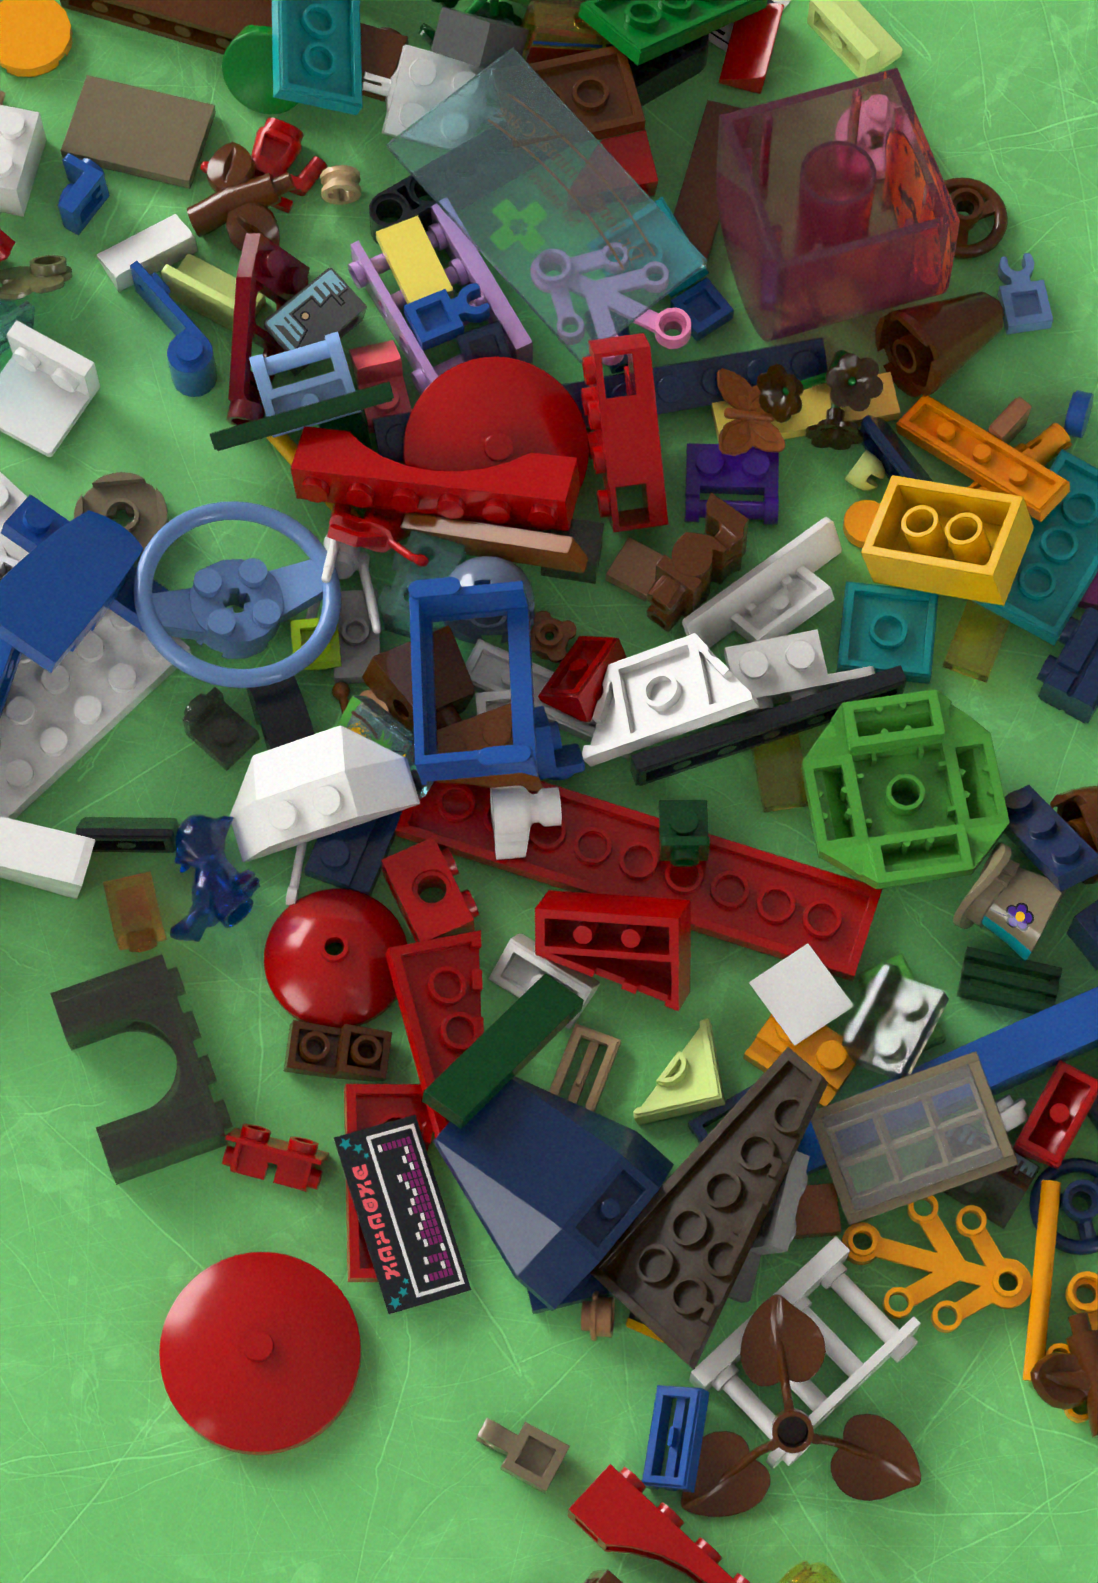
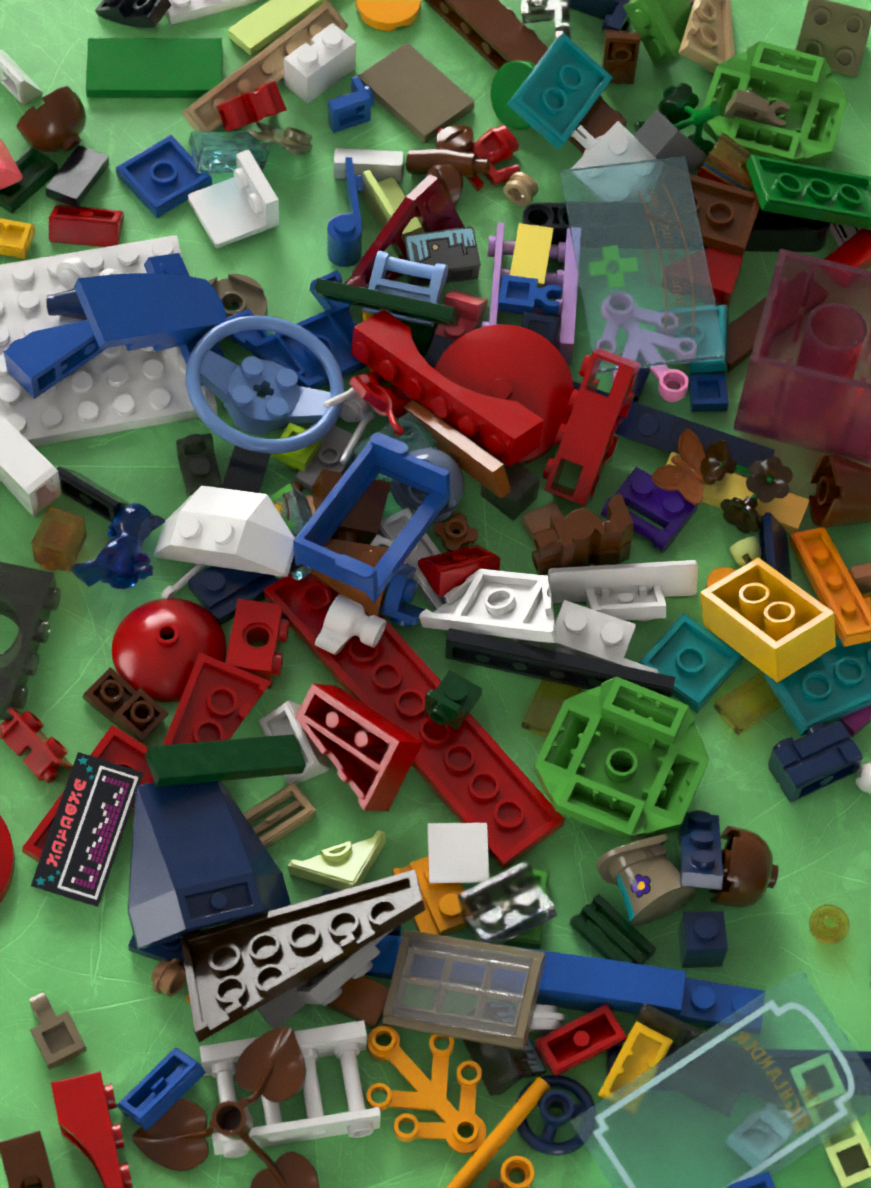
camera: 30 degrees right, 10 degrees down
(250, 479) = (332, 327): none -> blue wing

